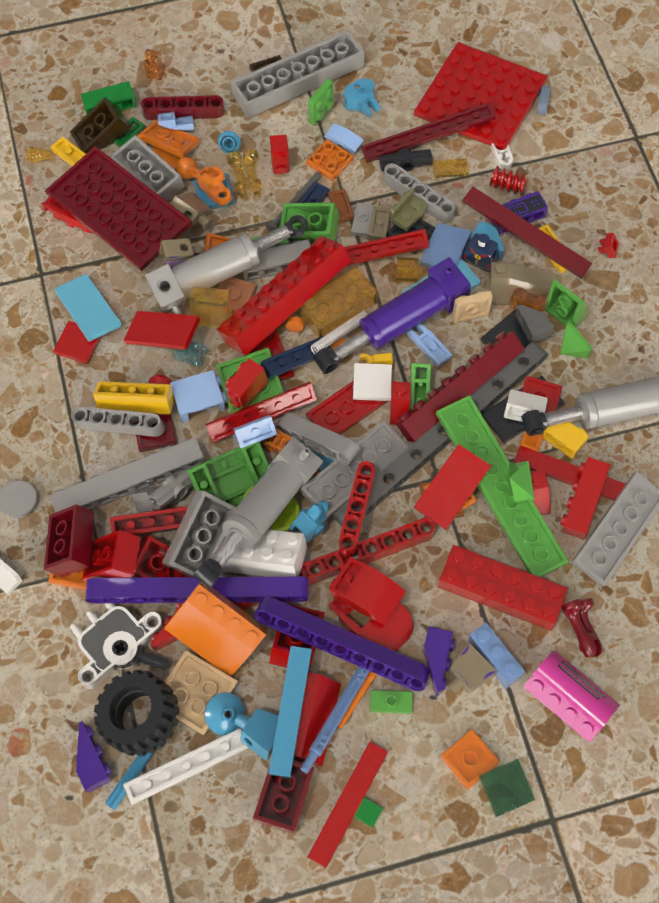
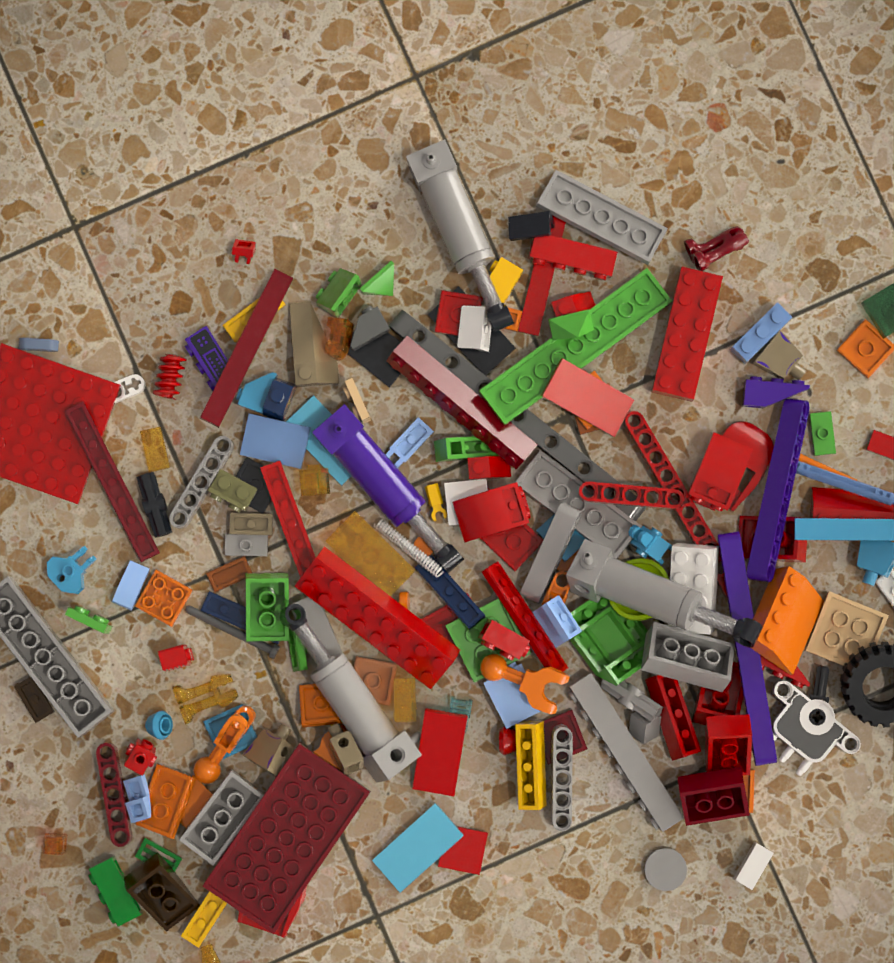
camera: 90 degrees left, 20 degrees up
(204, 402) = (531, 683): none -> orange piece
(207, 125) = (140, 756): none -> red brick
(216, 709) = (858, 603): dark azure dish -> none
(360, 397) = (492, 511): none -> red piece
(571, 696) = (789, 253): dark pink brick -> none
(616, 463) = (530, 225): none -> black panel

